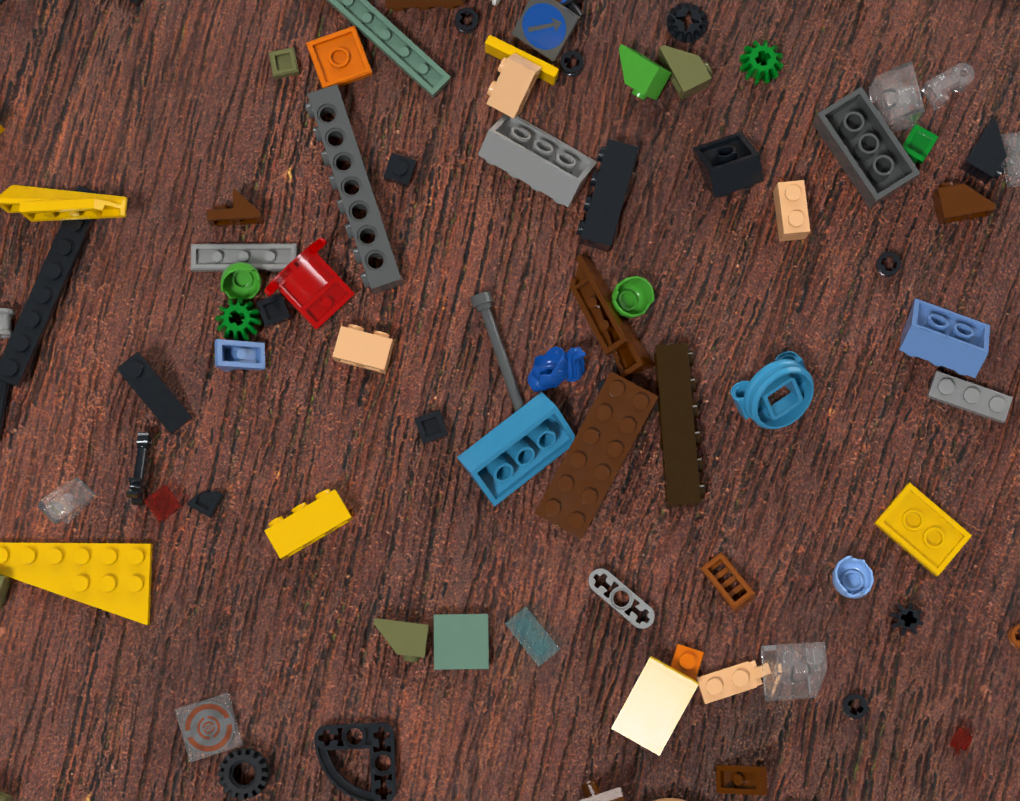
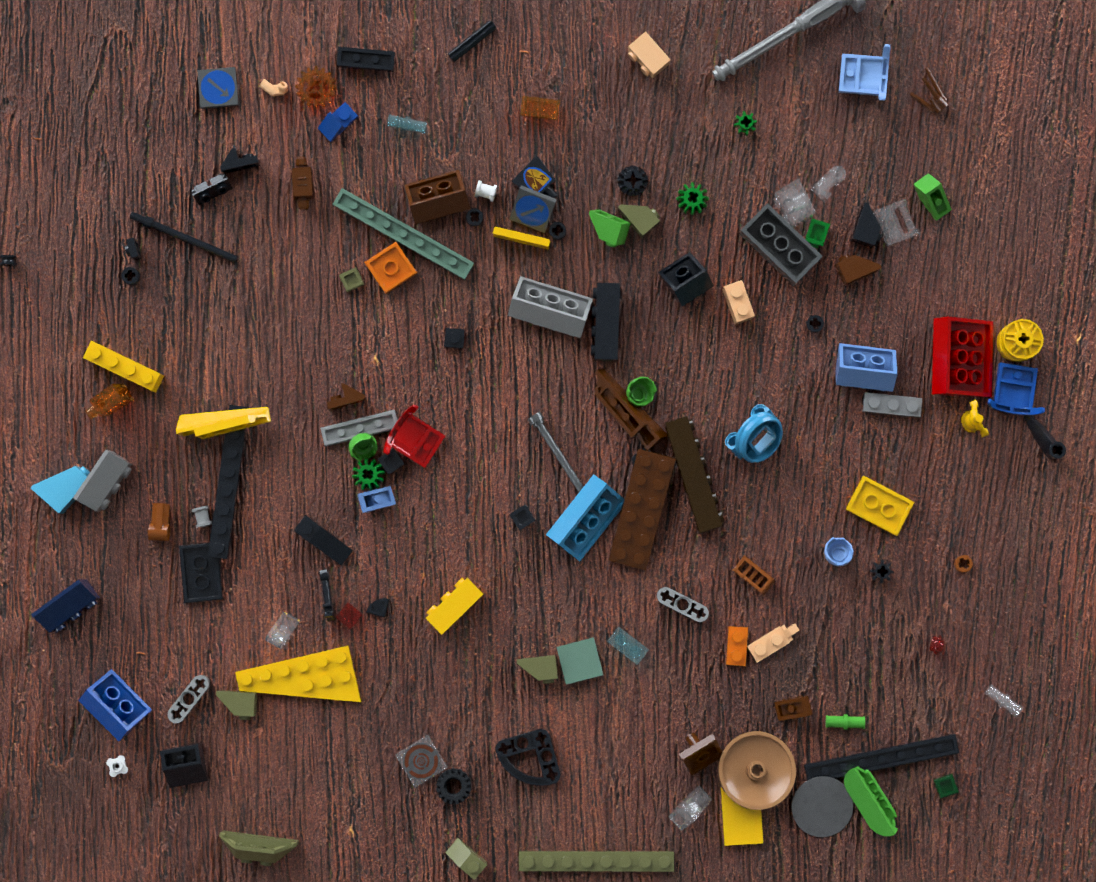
camera: 15 degrees left, 5 degrees up
(330, 101) = (393, 301): dark grey brick -> none
(363, 348) = (461, 474): light nougat brick -> none
(513, 85) = (521, 259): light nougat brick -> none
(555, 367) = (598, 455): blue hair -> none
(655, 705) = (723, 672): tile -> none
(793, 670) = (811, 625): clear slope -> none
(863, 703) = (865, 636): black bush -> none

